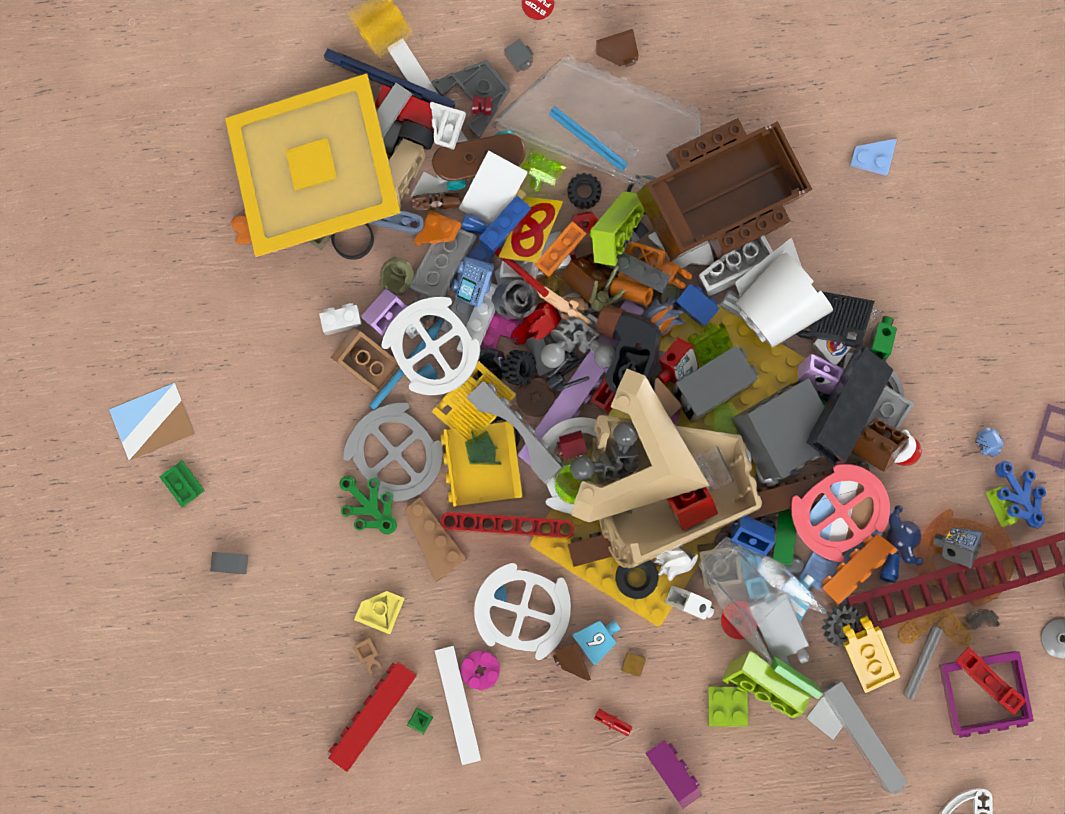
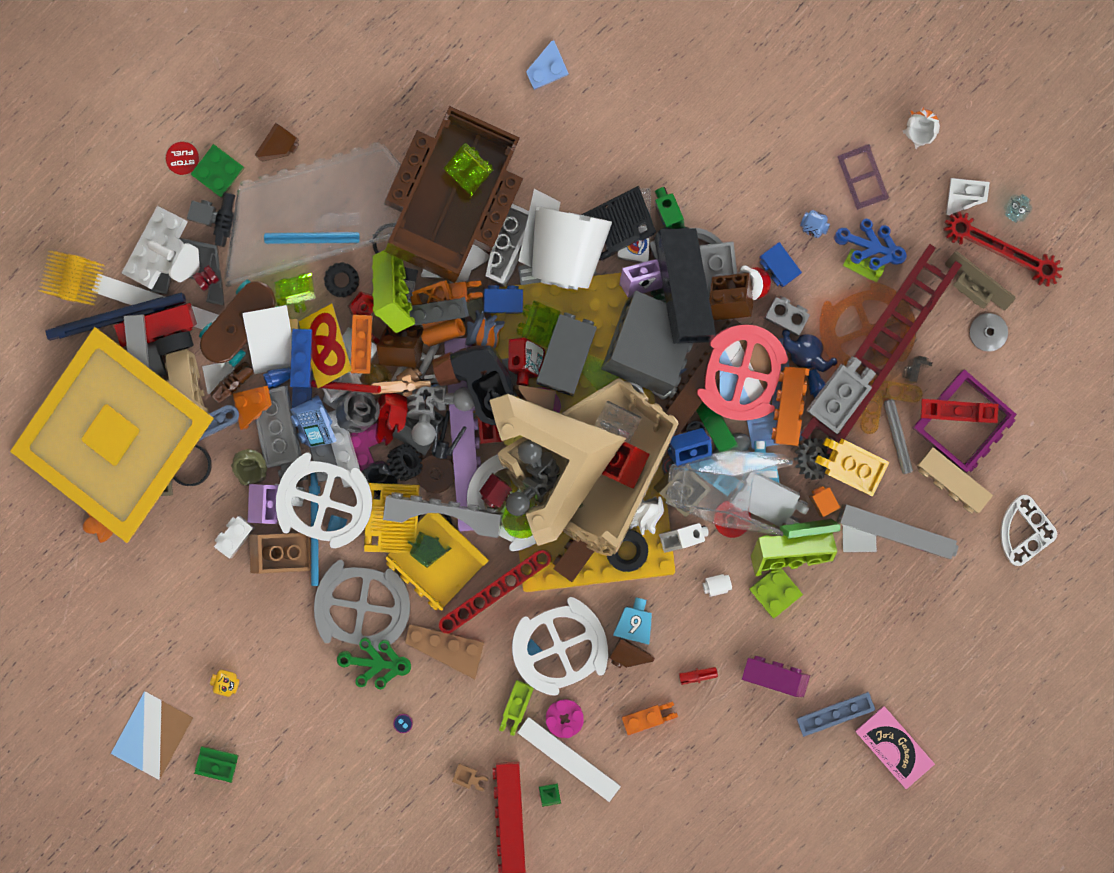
camera: 35 degrees left, 5 degrees up
(229, 563) = (303, 795): dark grey beam -> none
(240, 426) = (224, 683): none -> yellow head
(351, 570) = (403, 723): none -> dark blue tile
(380, 611) = (451, 736): light yellow plate -> none
(446, 124) = (191, 317): white wing -> none
(451, 628) = (516, 705): none -> lime hinge
(465, 59) = (162, 251): none -> white plate
(531, 74) = (224, 220): none -> black hinge
(545, 723) = (647, 718): none -> orange hinge
(556, 34) = (217, 170): none -> green plate
(600, 299) = (425, 357): olive plant -> none
(633, 664) = (678, 618): pearl gold tile -> none
(685, 663) = (717, 585): none -> white brick
(753, 180) = (468, 168): none -> clear neon green plate
(824, 664) = (824, 501): none -> orange brick
(905, 498) = (785, 320): none -> light grey brick
(905, 592) = (841, 395): none -> light grey tile
(936, 452) = (780, 265): none -> blue brick
(941, 733) = (953, 480): none -> tan brick
(960, 545) = (855, 324): dark grey torso -> none

